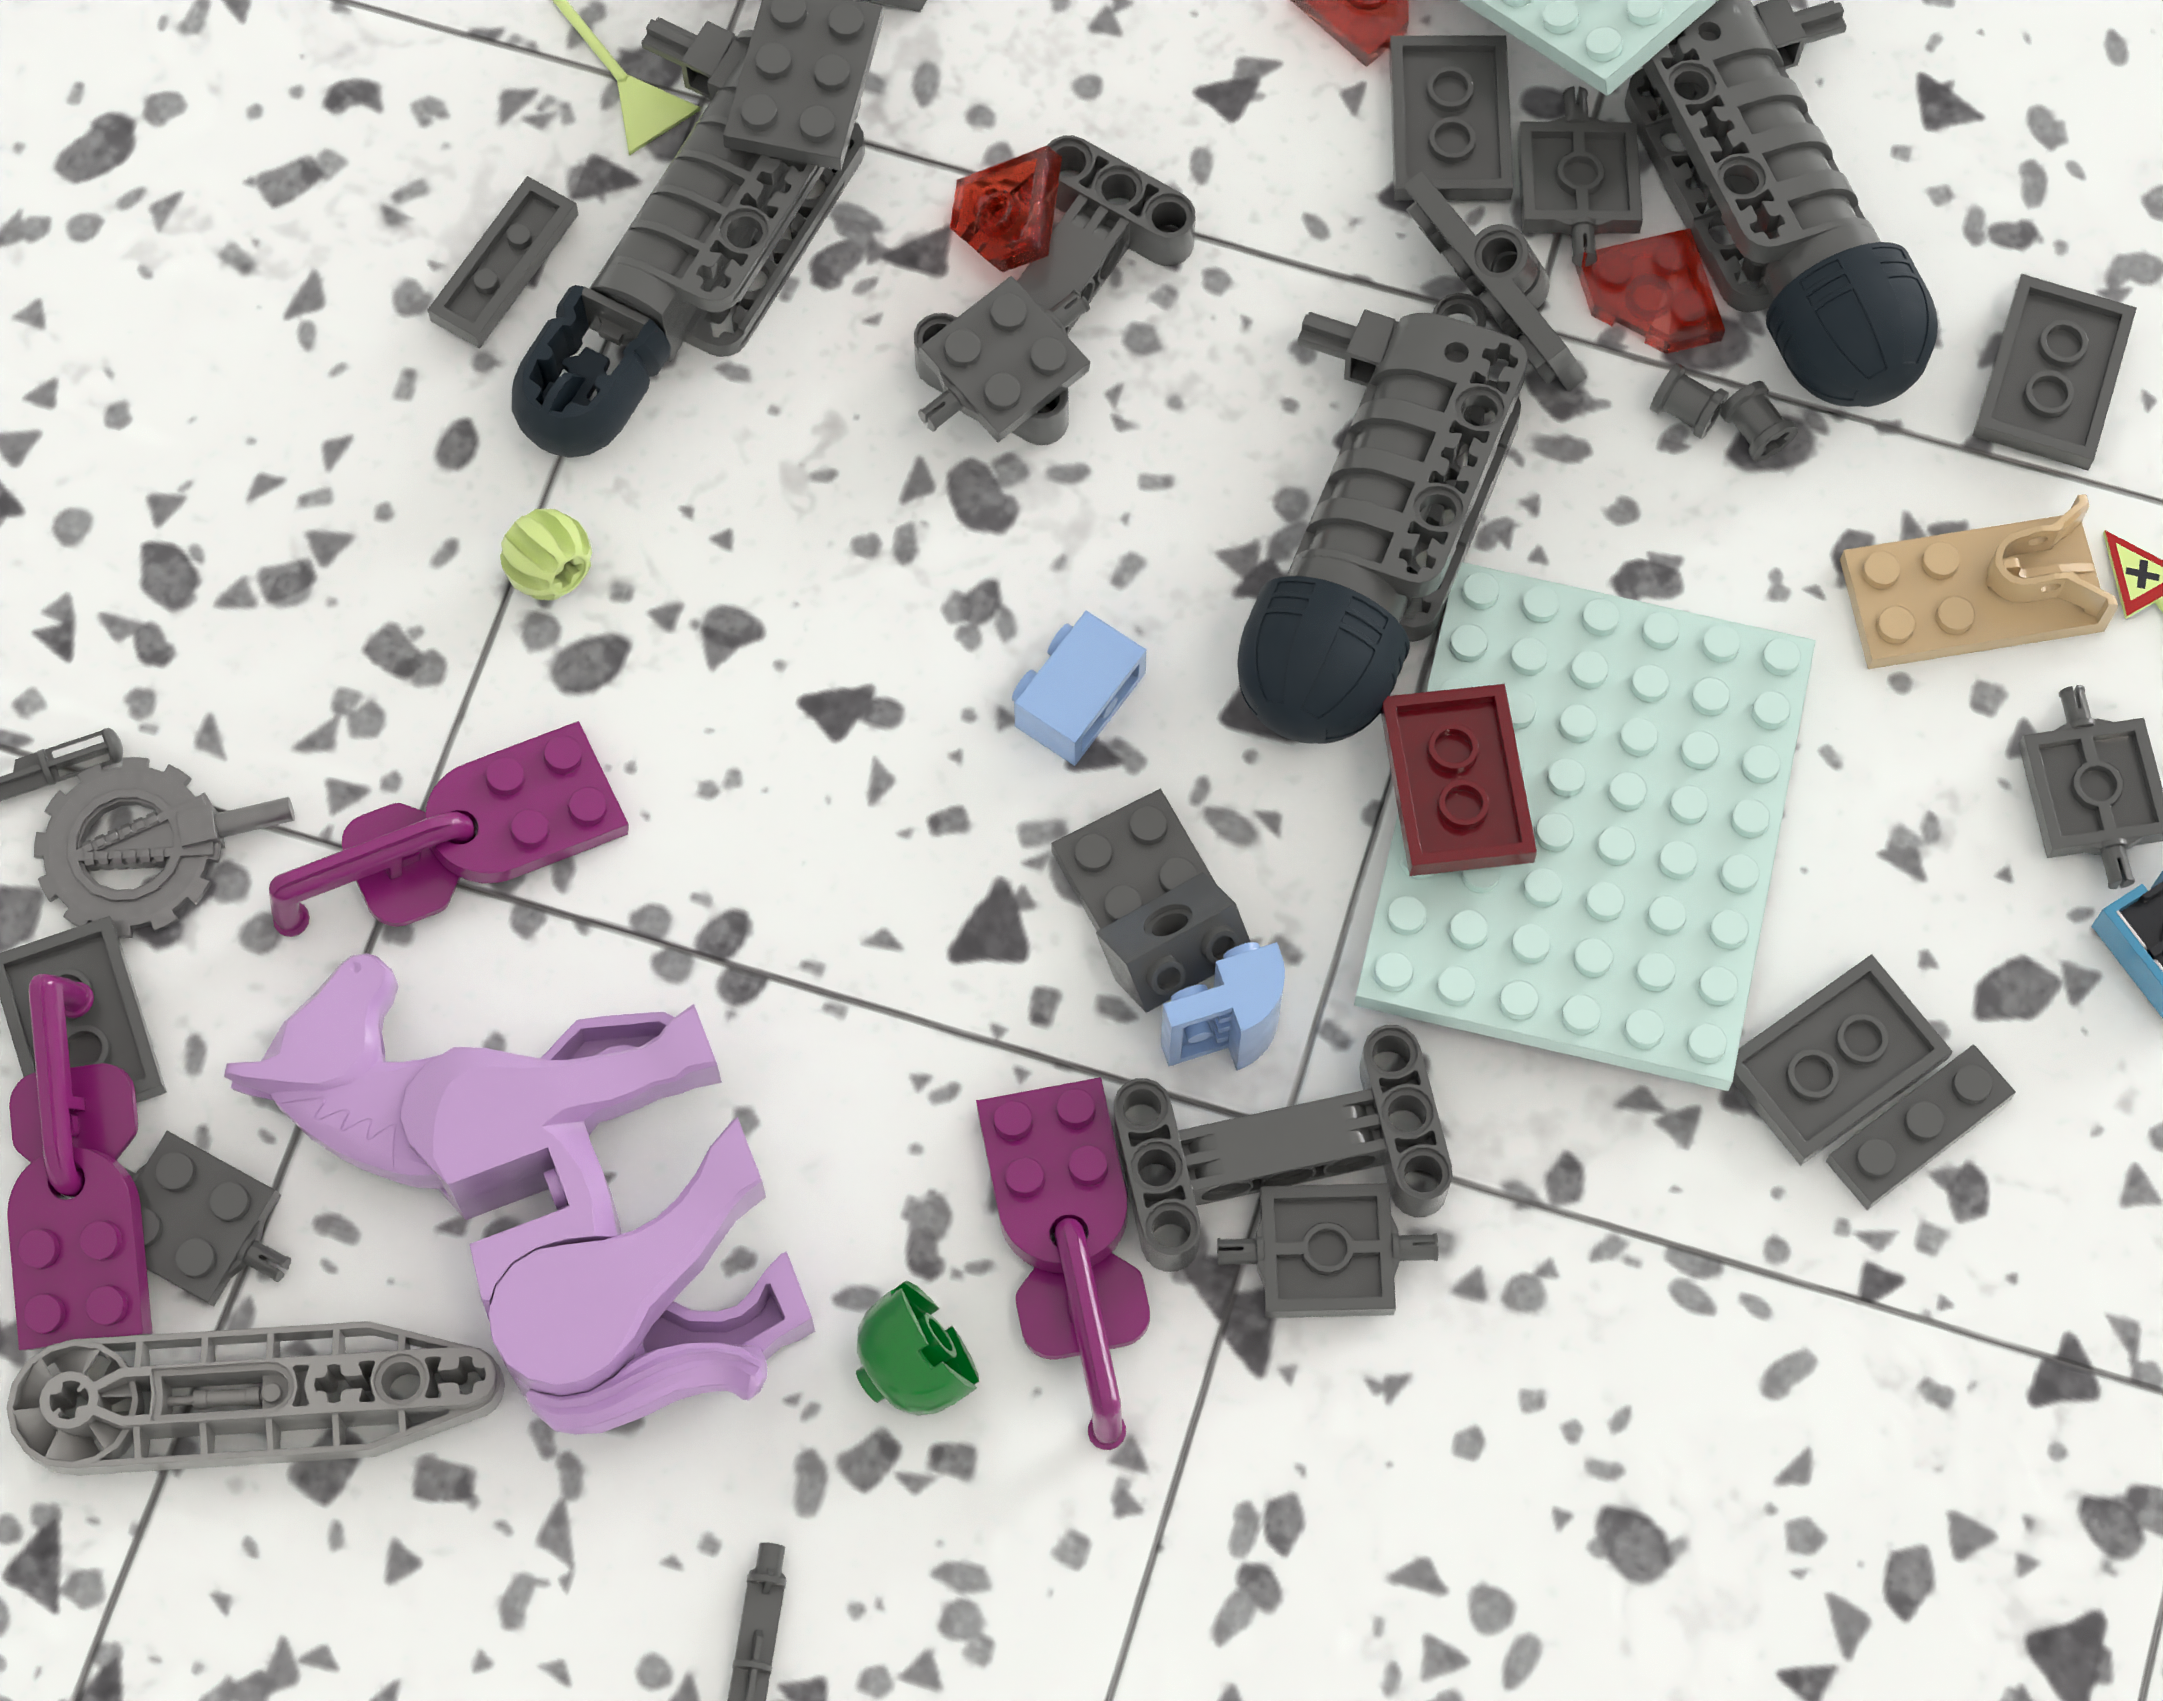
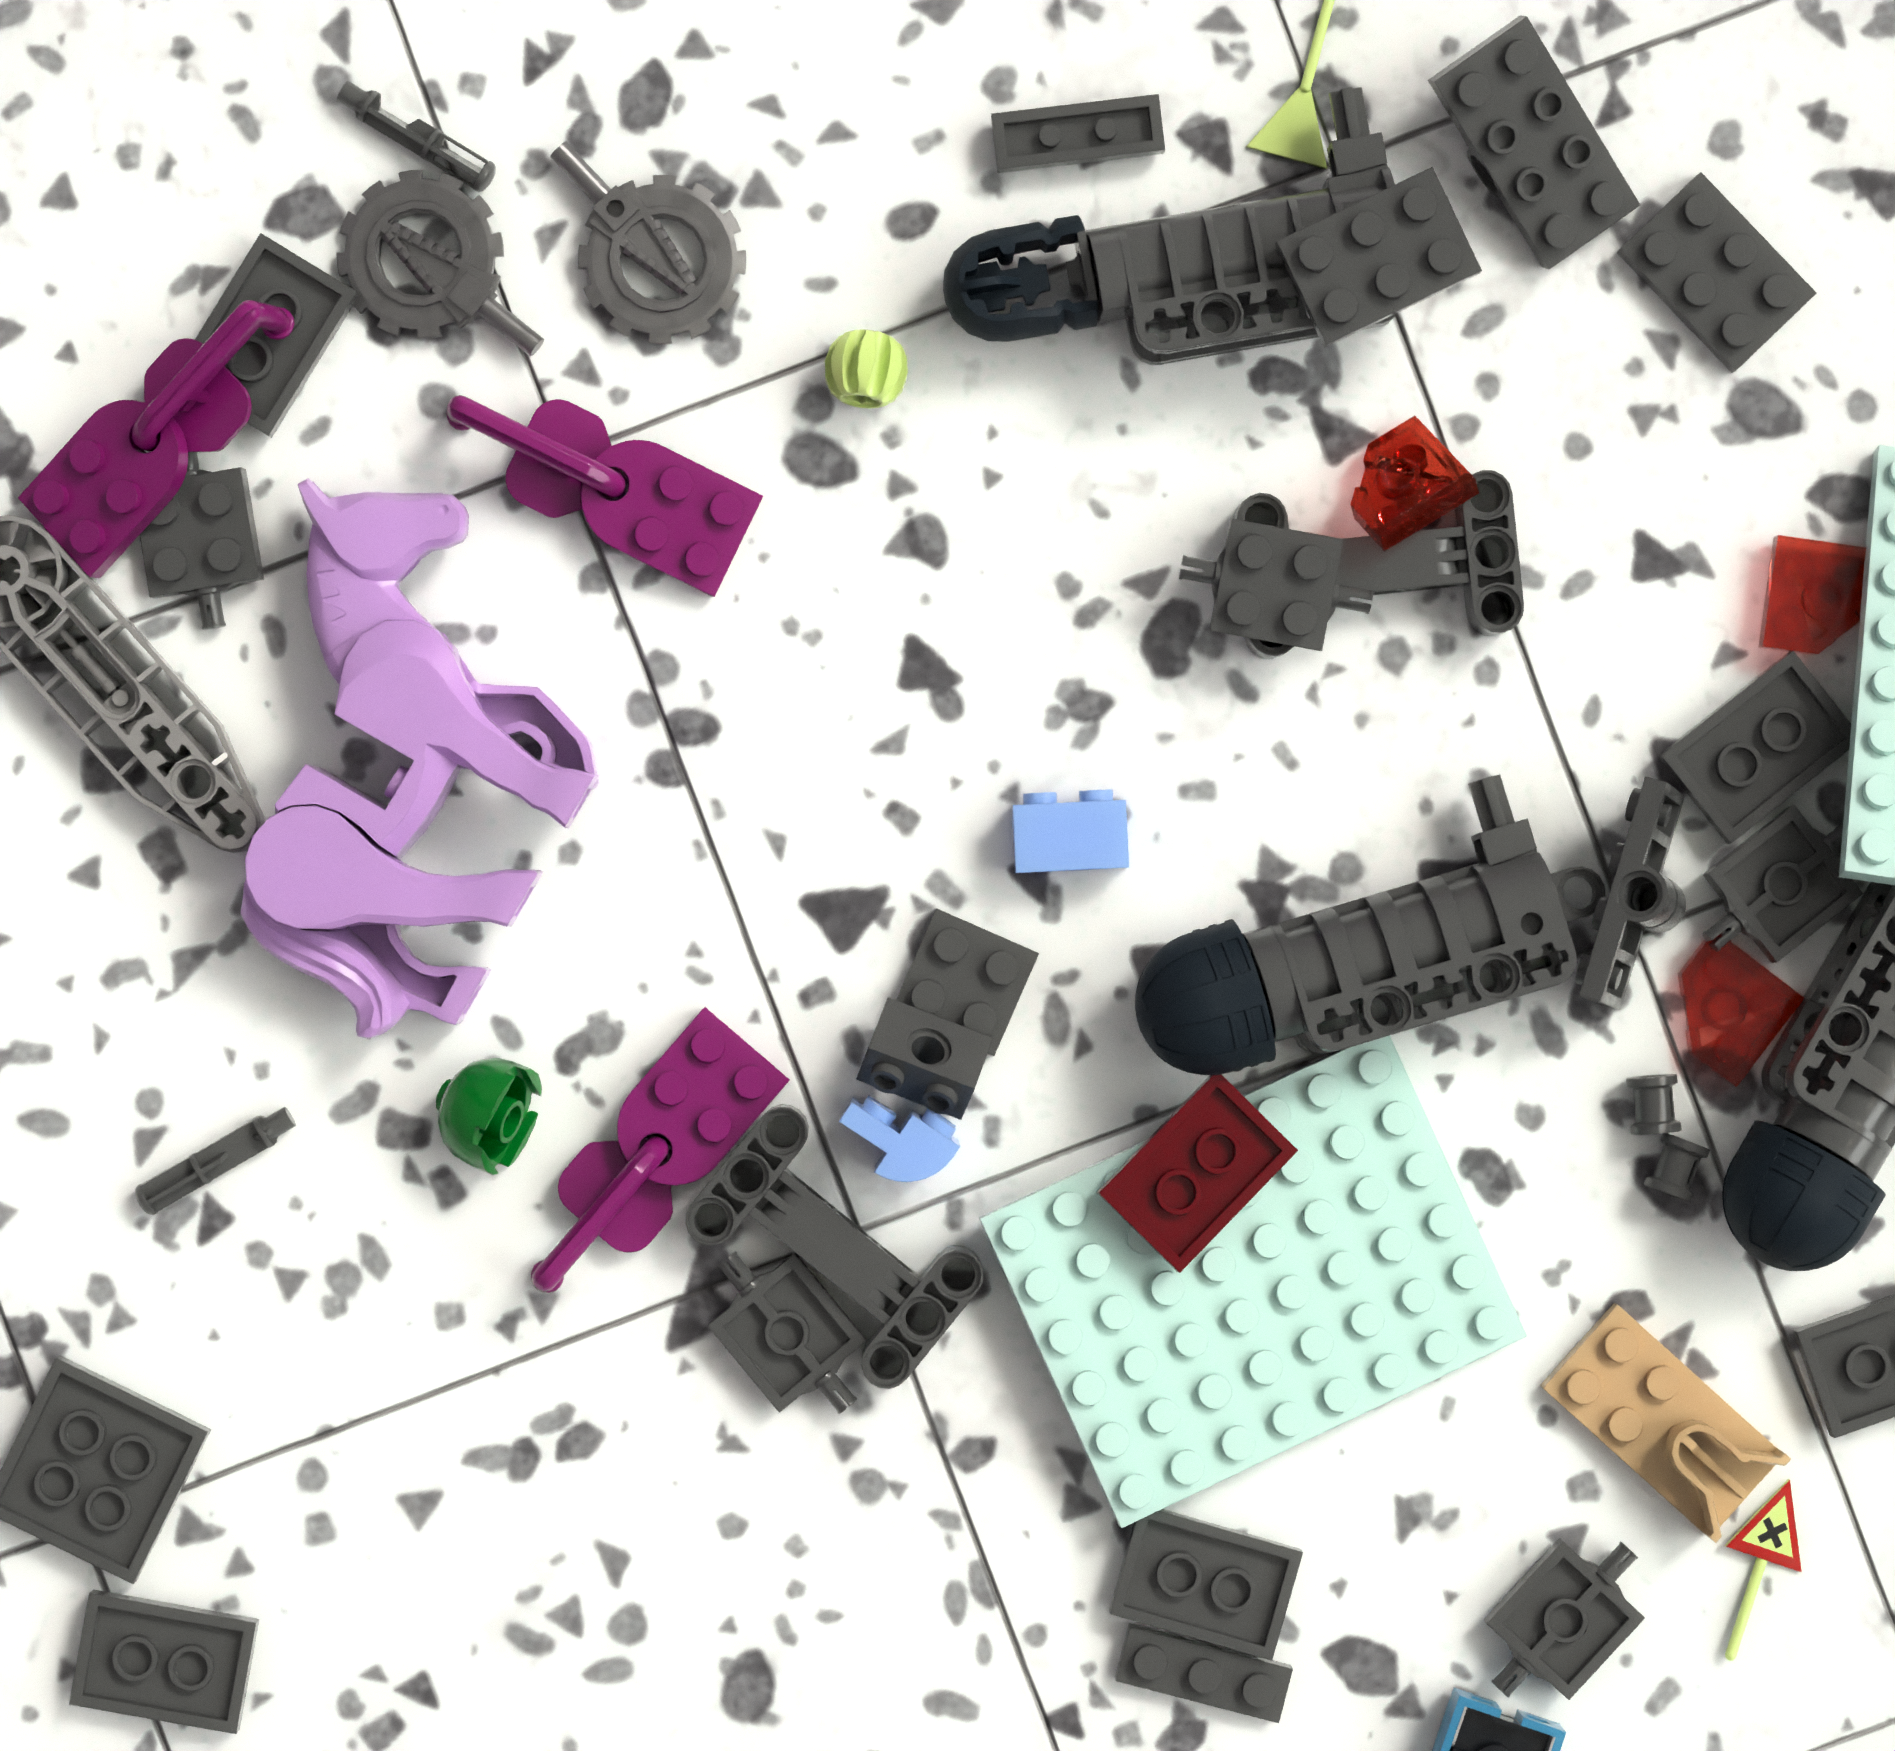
camera: 55 degrees right, 20 degrees up
(261, 658) = (629, 223): none -> flat silver bar

